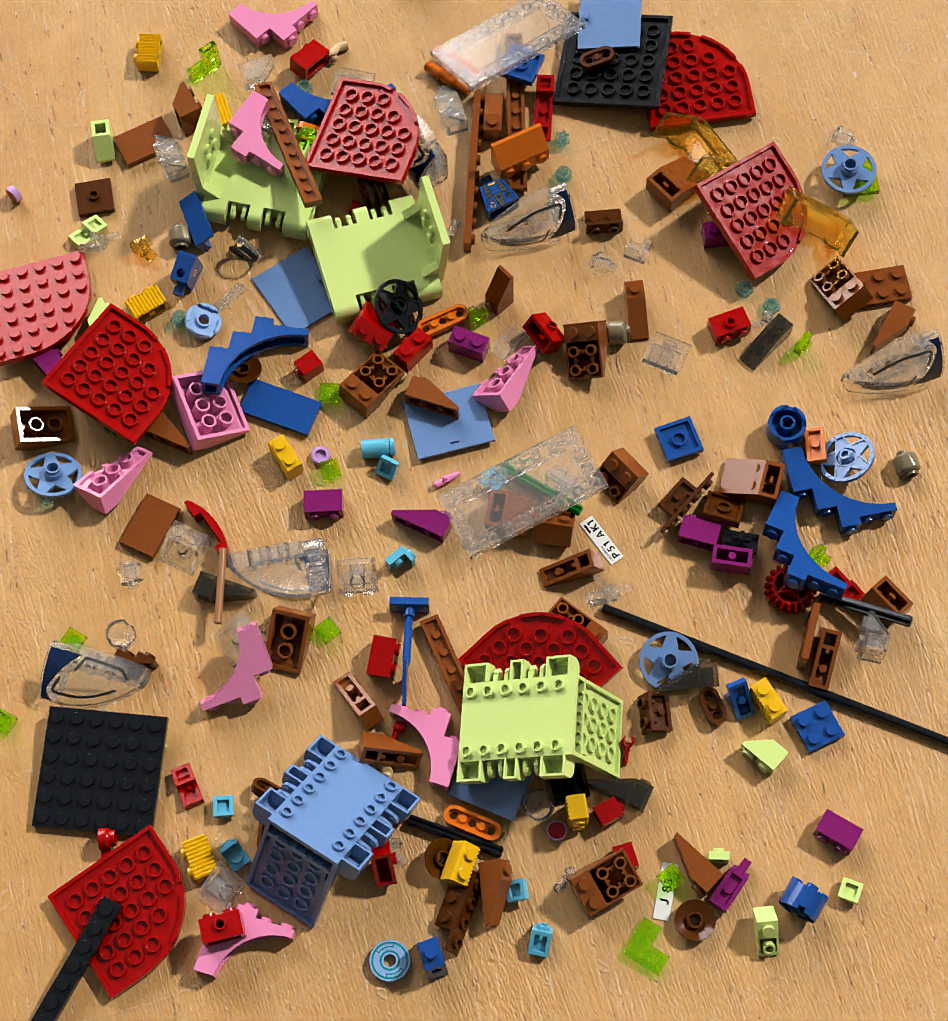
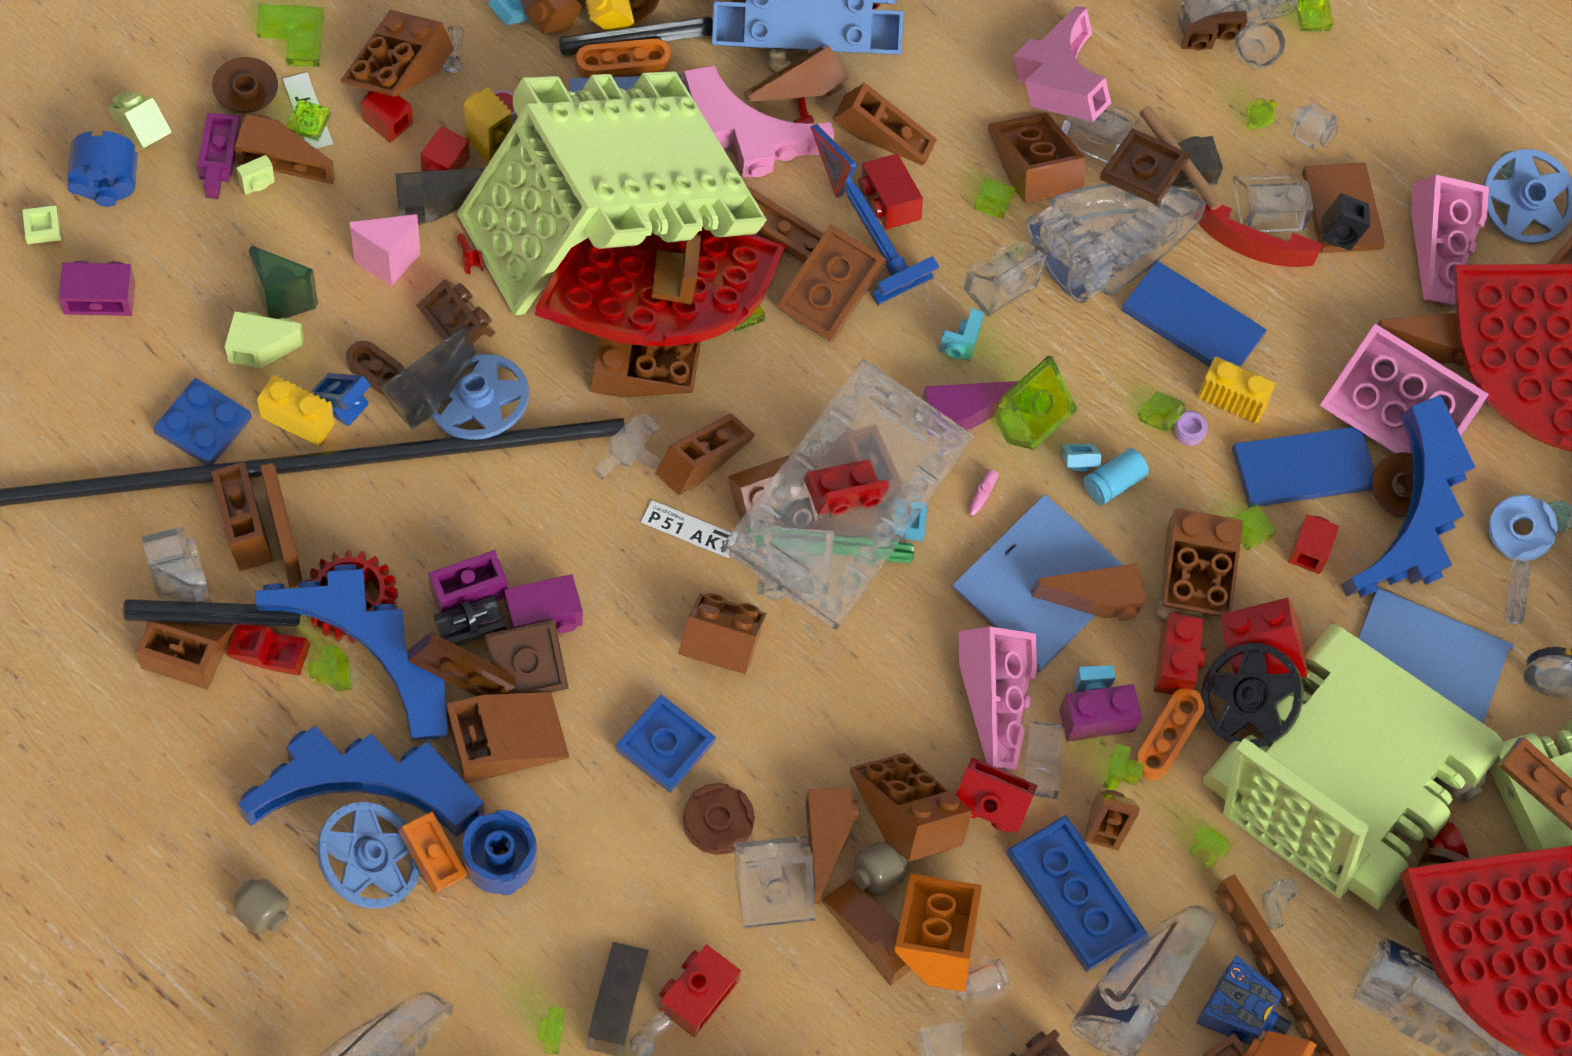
camera: 135 degrees right, 5 degrees down
(151, 597) = (1261, 113): none -> clear neon green plate
(164, 504) = (1345, 222): none -> black brick
(245, 587) = (1144, 166): none -> reddish brown plate
(275, 508) = (1192, 317): none -> blue tile
(323, 504) = (1130, 354): magenta brick -> none
(395, 496) = (1035, 406): none -> clear neon green slope
(450, 619) = (831, 283): none -> dark orange plate
(459, 266) = (1212, 841): none -> clear neon green tile
(460, 361) = (1094, 678): none -> medium azure plate
(527, 486) = (845, 487): none -> red bracket
(533, 281) = (1076, 893): none -> blue tile
(535, 651) = (677, 273): none -> dark orange panel
(611, 284) = (938, 929): none -> orange slope
(628, 360) = (829, 825): none -> dark orange slope
(672, 765) = (386, 245): none -> bright pink slope
(673, 396) = (718, 818): none -> copper tile
(679, 498) = (604, 645): reddish brown bracket -> none
(742, 772) = (282, 284): none -> clear green slope
(761, 508) = (460, 666): none -> reddish brown plate

